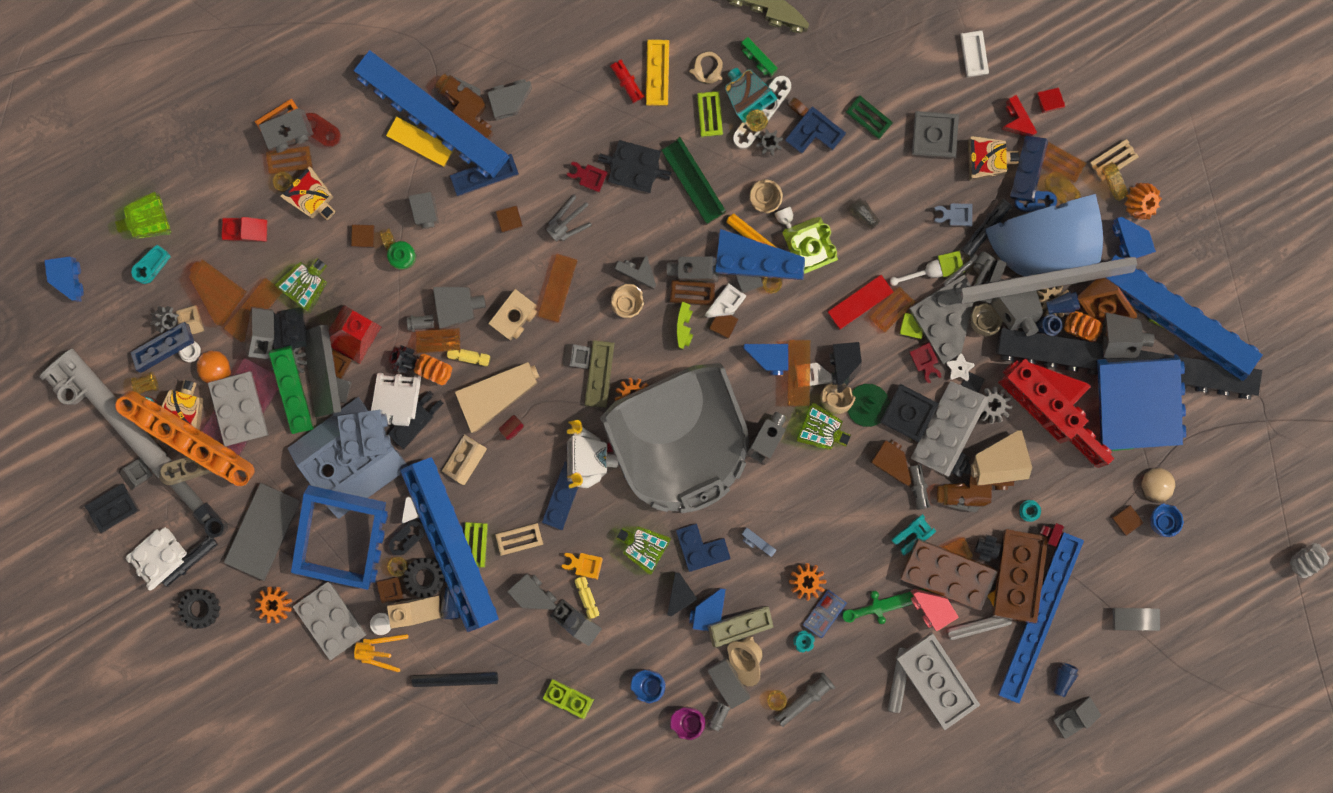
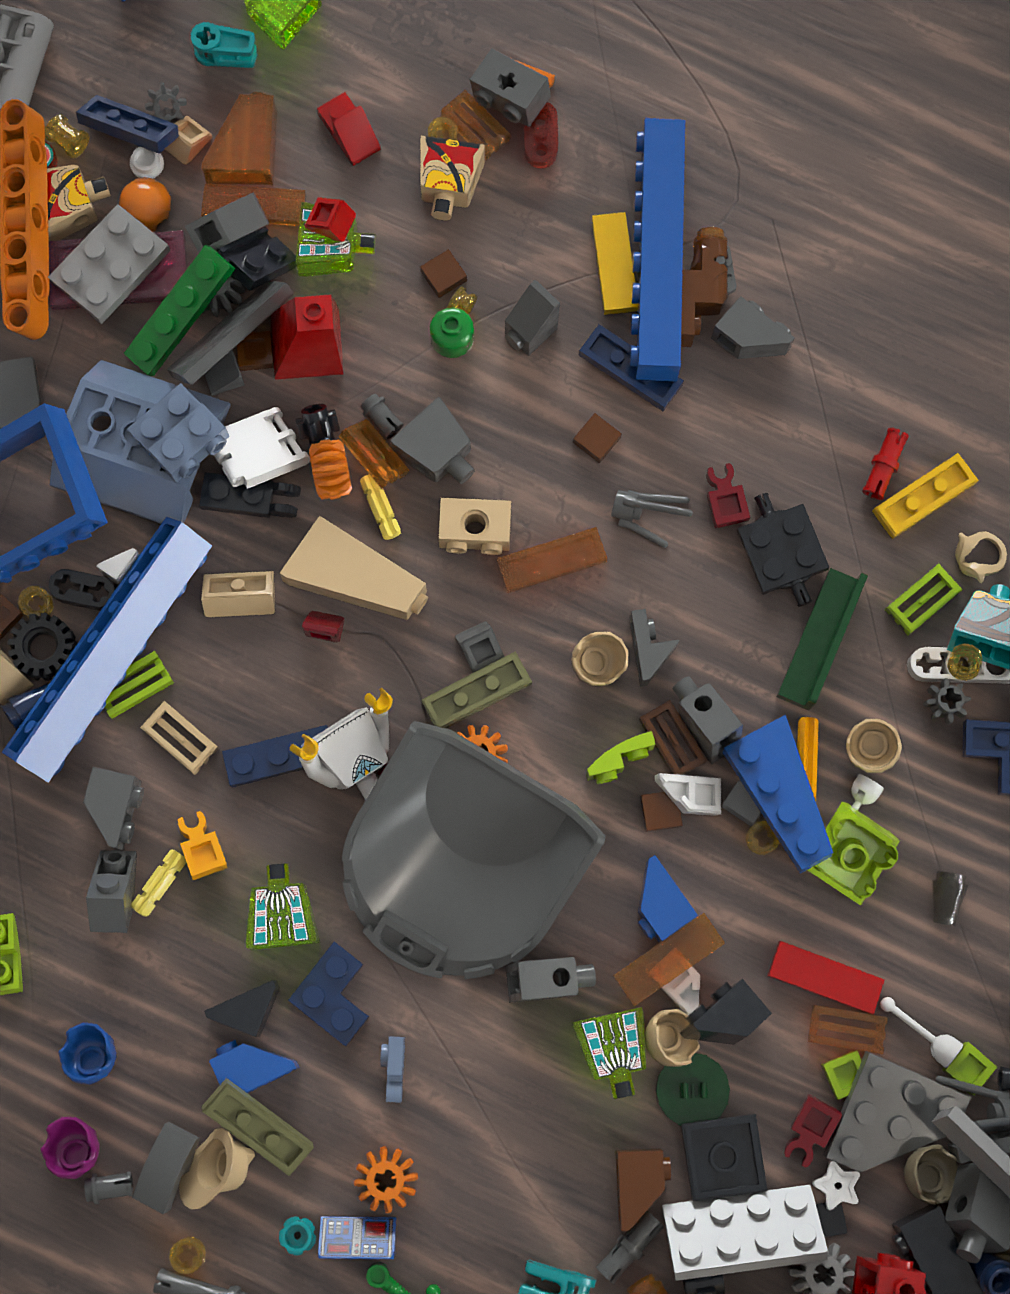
camera: 55 degrees right, 10 degrees down
(295, 276) = (331, 218): none -> red slope

